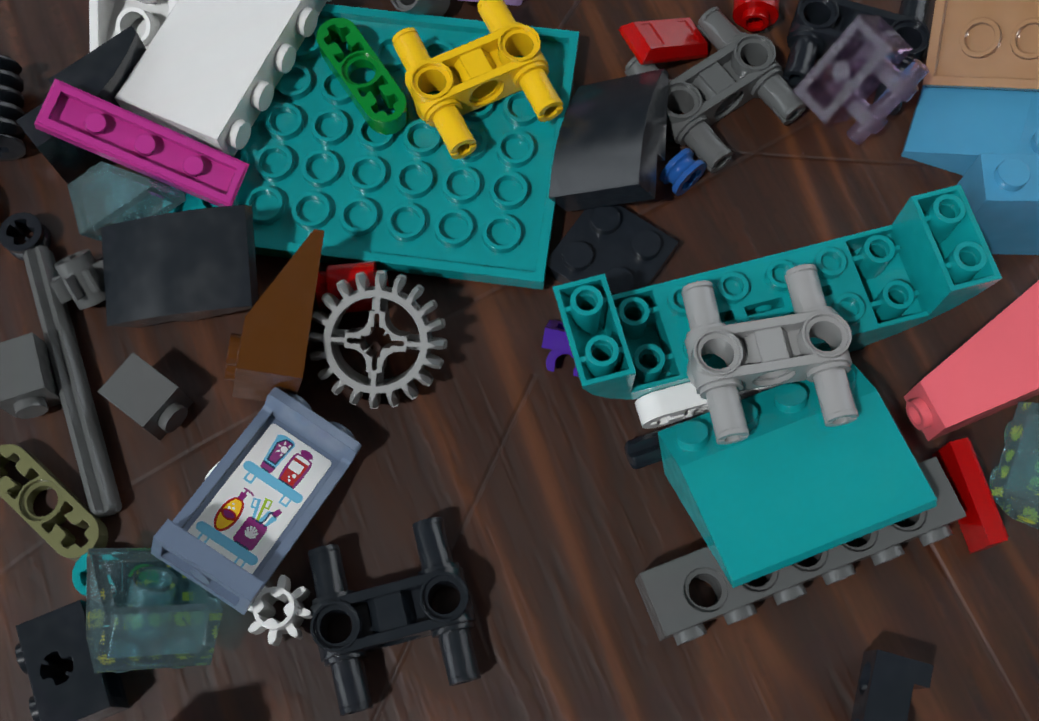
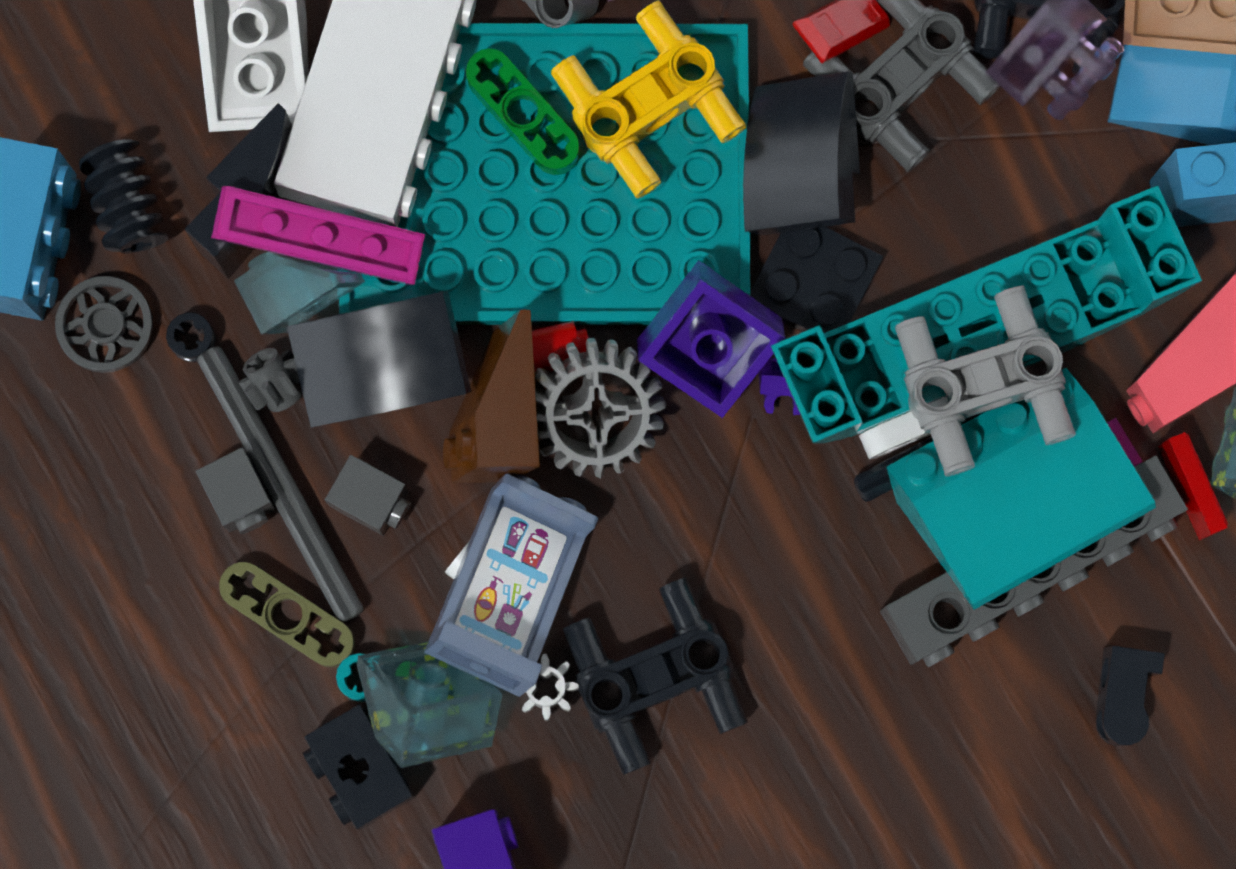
camera: 15 degrees left, 10 degrees up
(497, 287) = (710, 339): none -> dark purple brick
(682, 171) = (878, 176): blue bush -> none

